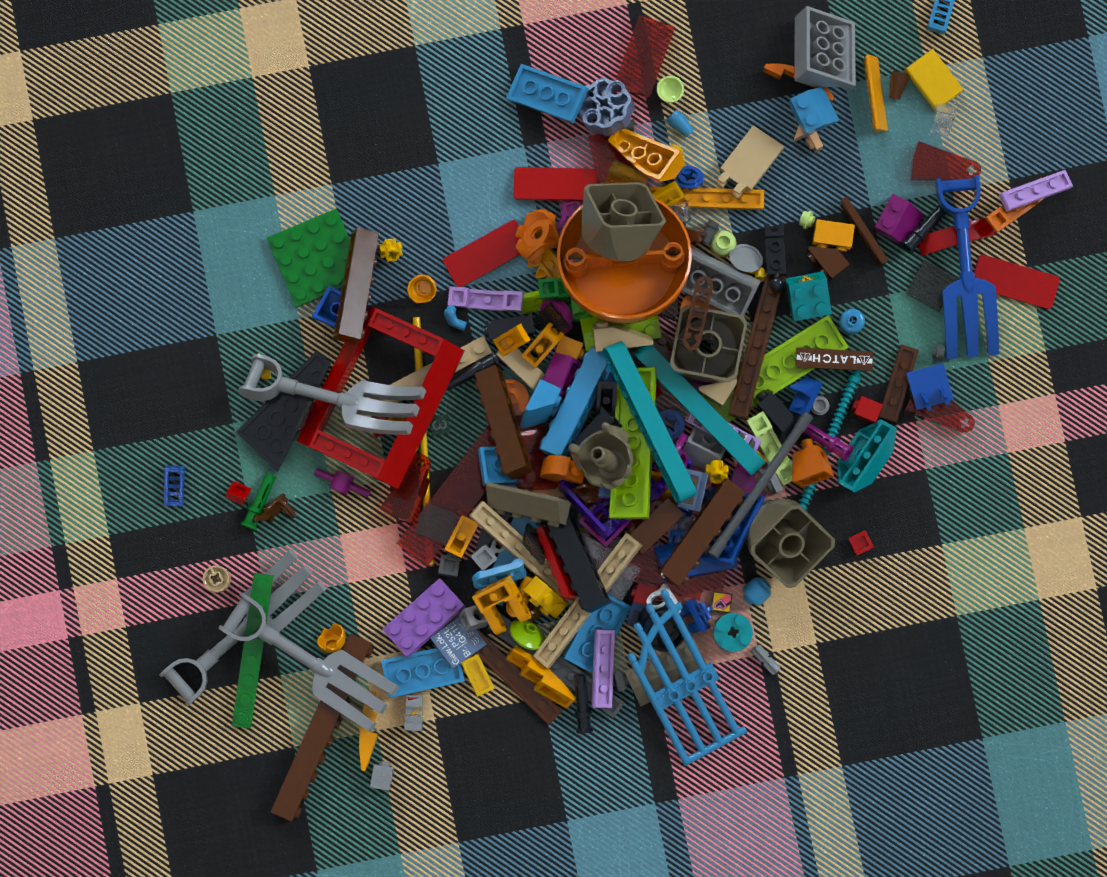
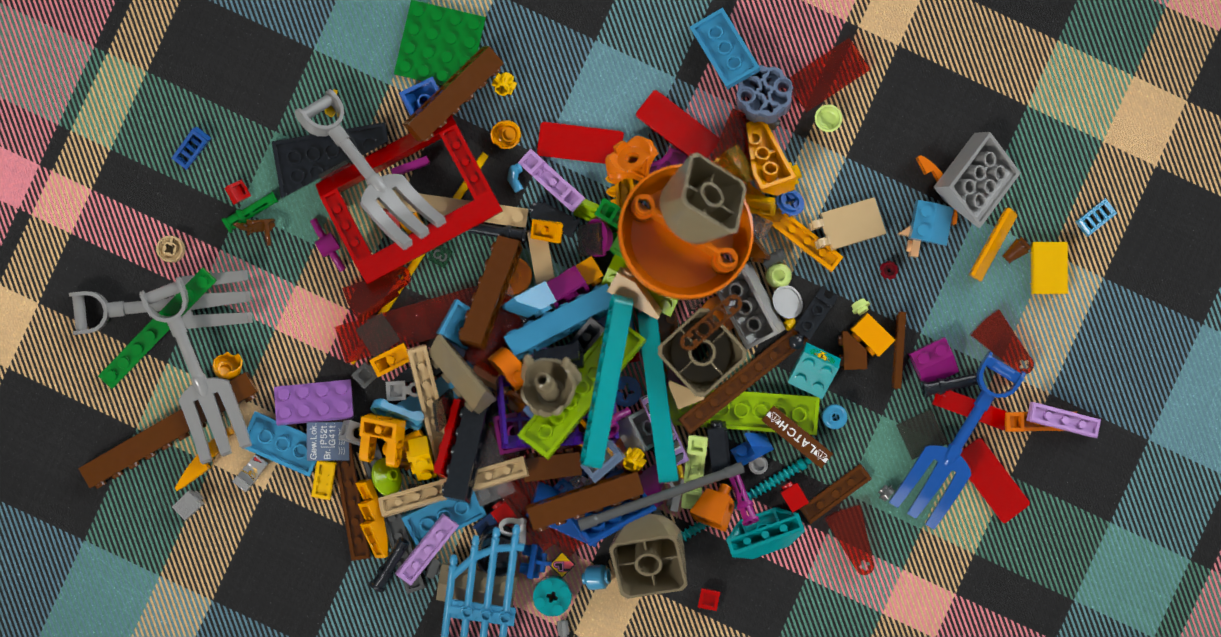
camera: 35 degrees right, 5 degrees up
(364, 369) = (410, 166): none -> magenta tile
(542, 345) = (569, 252): light orange brick -> none
(680, 123) = (815, 150): dark azure cone -> none
(808, 179) = (891, 265): none -> dark red plate
(930, 387) = (857, 516): blue plate -> none
(943, 120) = (1032, 306): clear slope -> none

